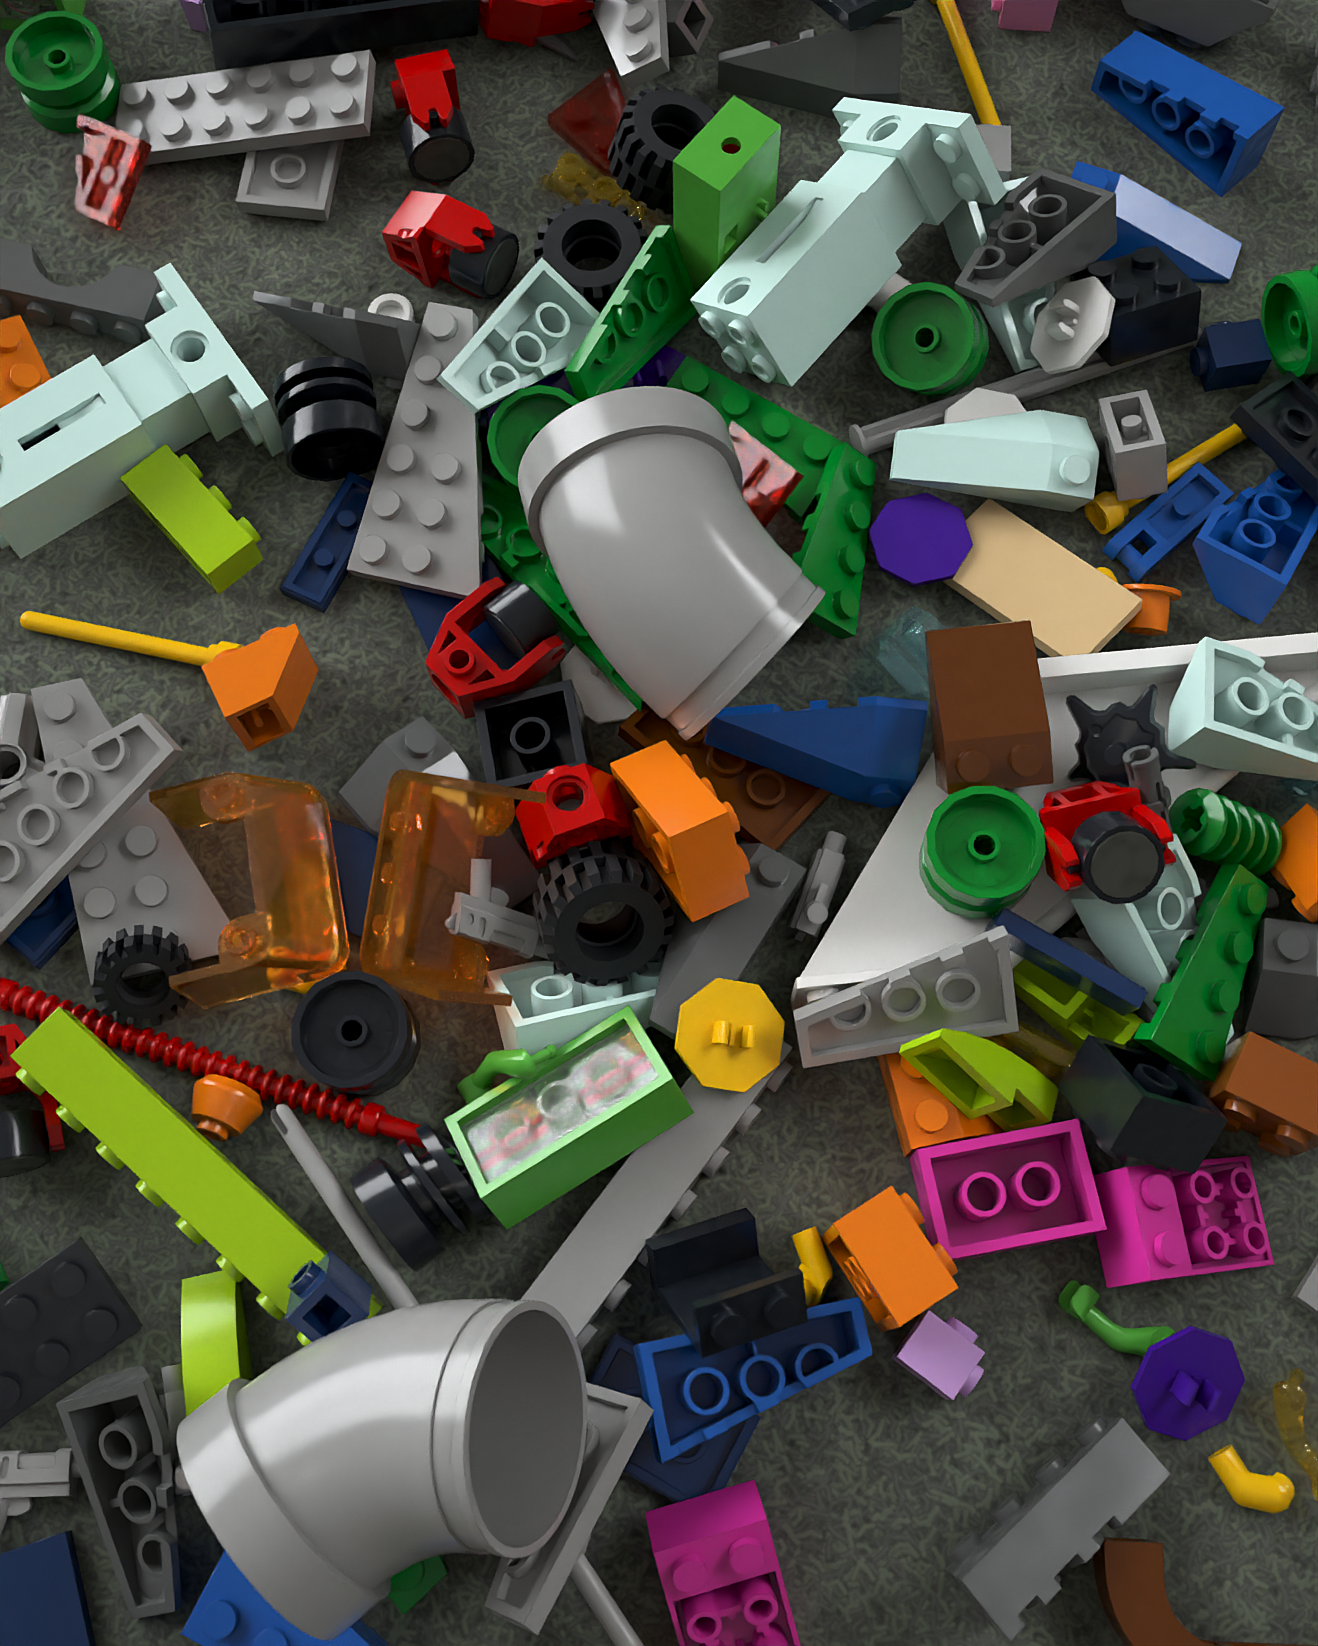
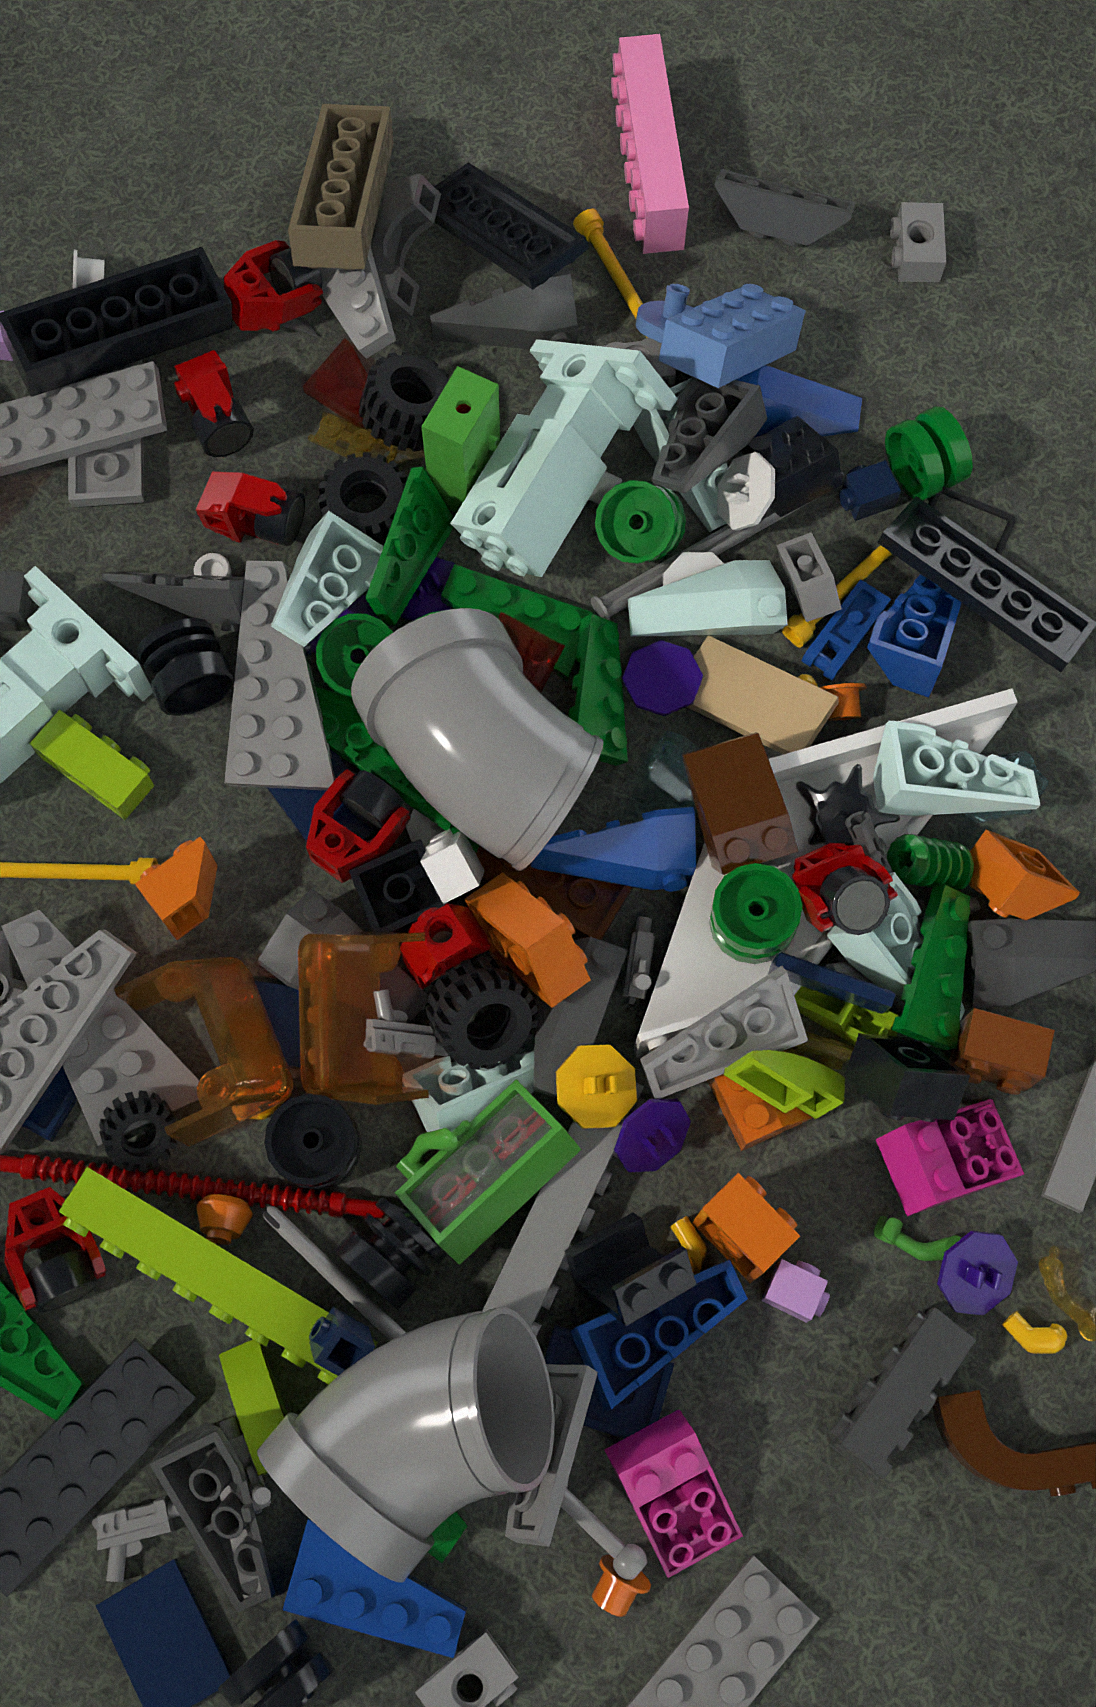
camera: 15 degrees left, 0 degrees up
(326, 554) = (206, 765): dark blue tile -> none
(602, 717) = (452, 865): none -> white brick
(791, 1112) = (652, 1135): none -> dark purple piece
(1007, 1190) = (822, 1160): dark pink brick -> none
(1081, 128) = (721, 335): none -> medium blue brick
(1188, 109) = (833, 308): blue wedge -> none

